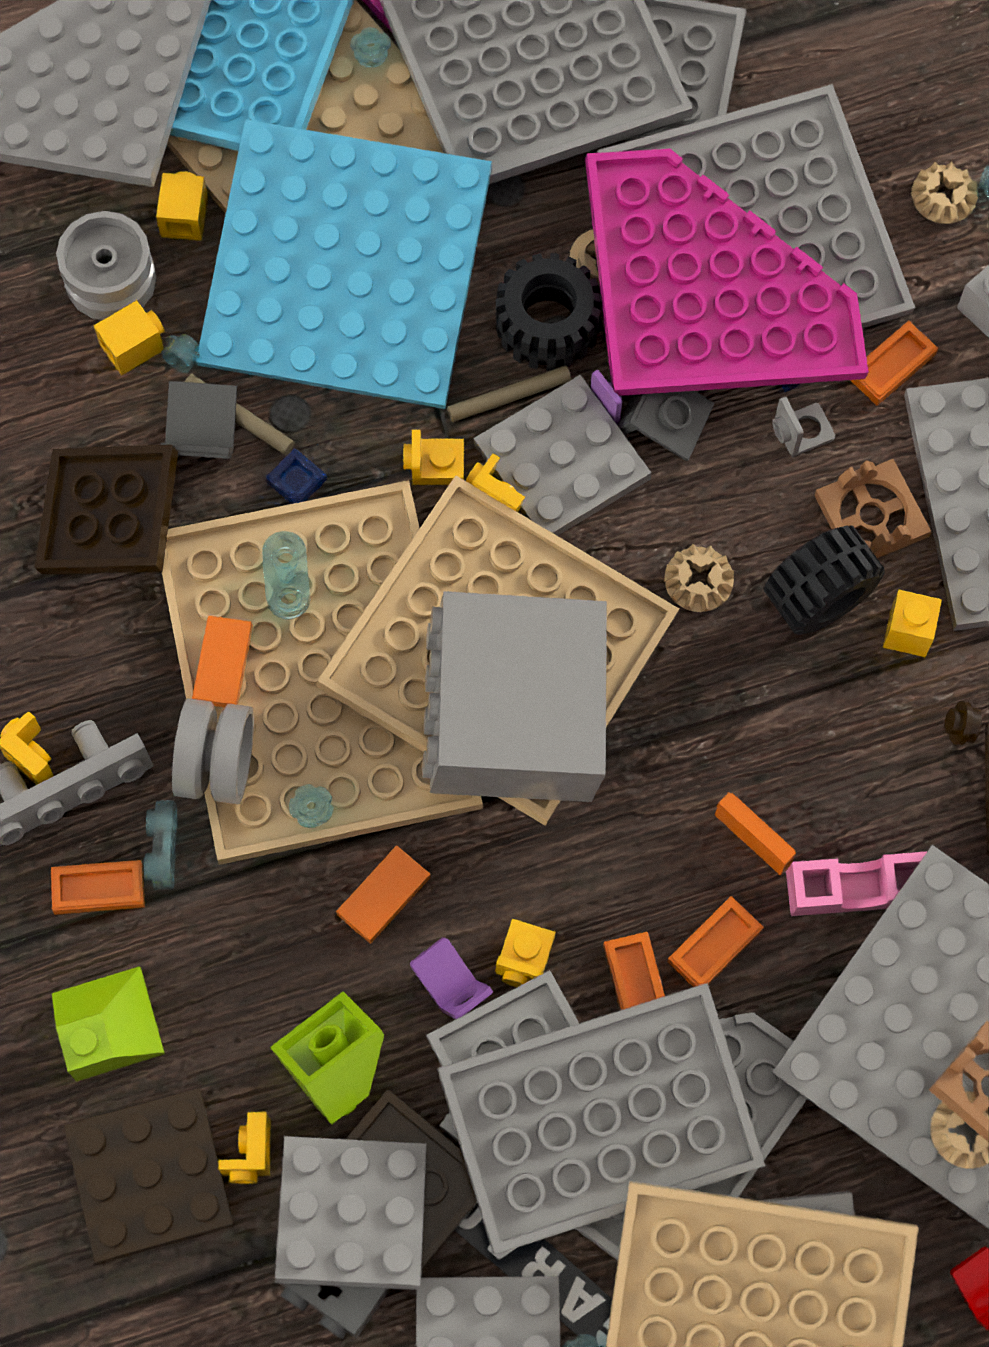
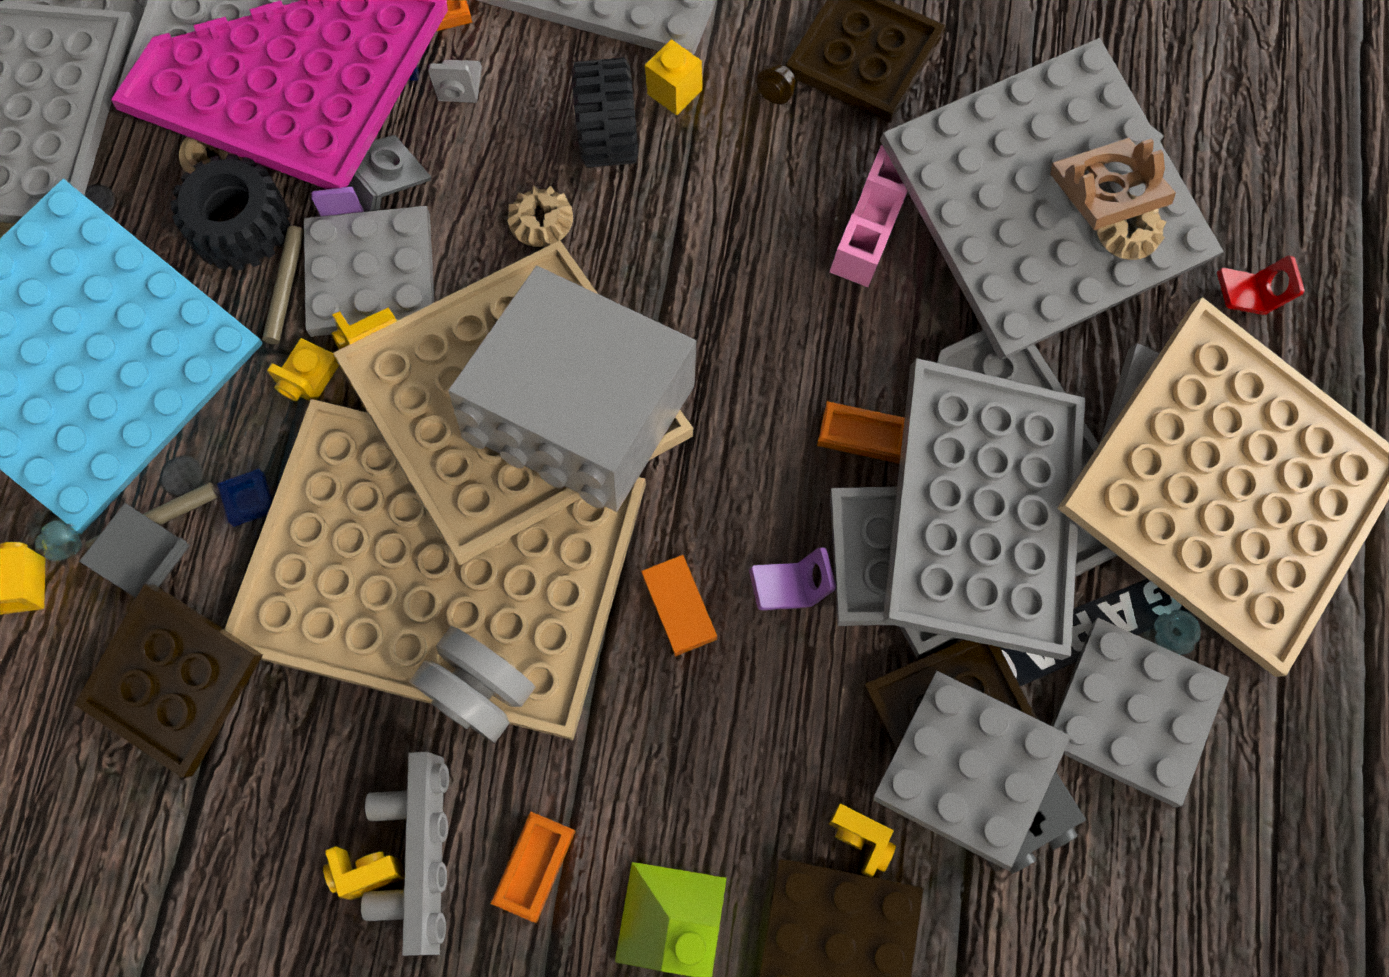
camera: 60 degrees left, 0 degrees up
(161, 863) = (545, 793): clear light blue plate -> none
(222, 660) = (384, 640): orange tile -> none
(286, 577) = (338, 543): clear light blue plate -> none
(311, 817) = (568, 636): clear light blue plate -> none
(333, 1056) = (809, 718): lime slope -> none
(524, 953) = (796, 511): yellow bracket -> none
(715, 943) = (863, 356): orange tile -> none
(755, 833) = (787, 276): orange tile -> none
(887, 475) = (535, 40): medium nougat piece -> none

